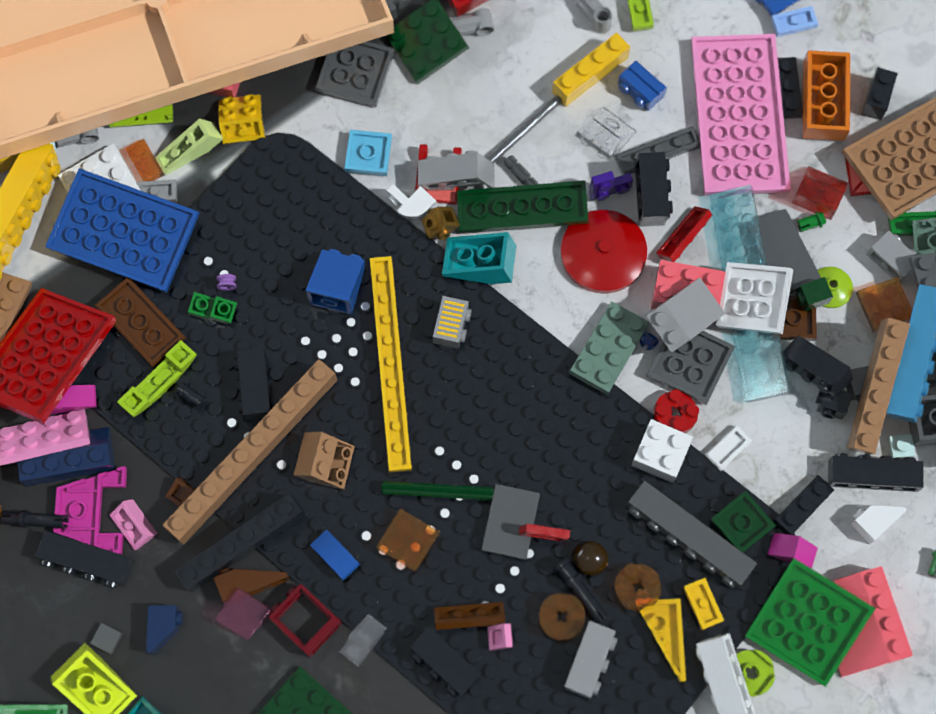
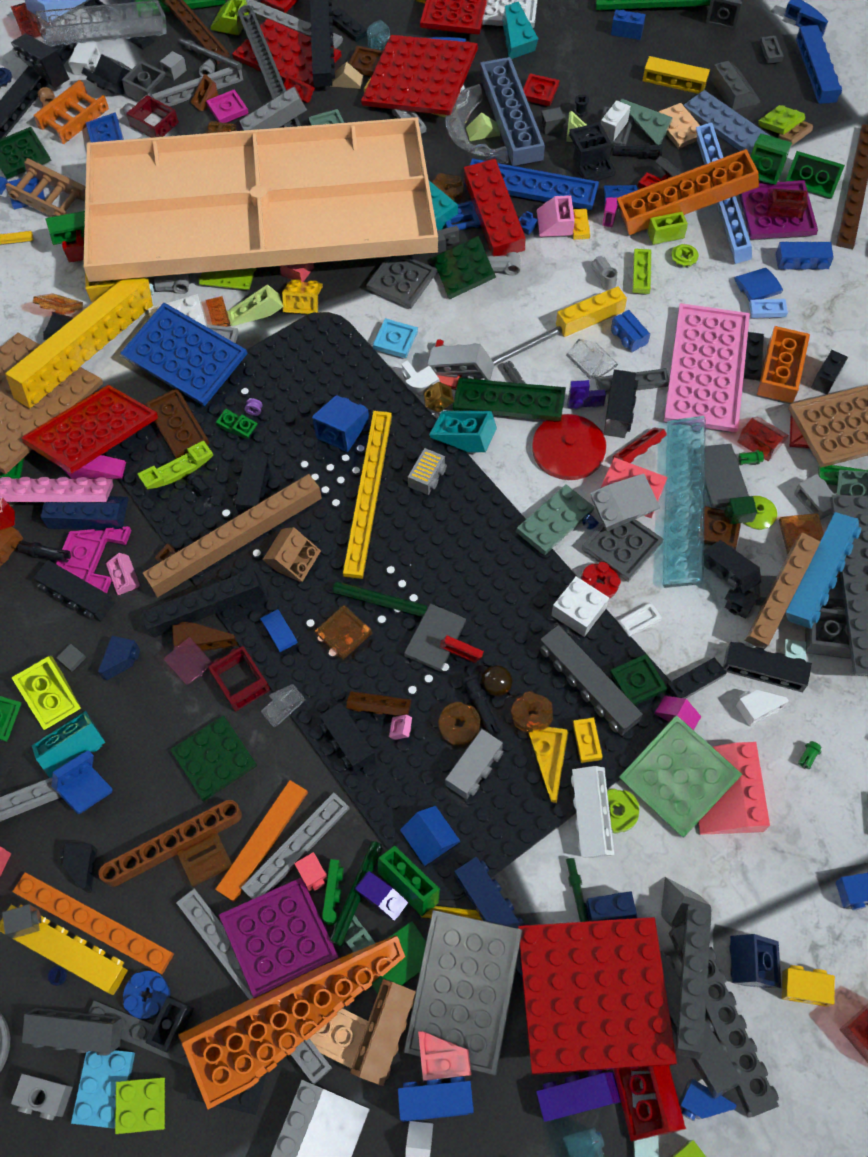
camera: 15 degrees right, 10 degrees down
(755, 297) = (688, 501): white plate -> none

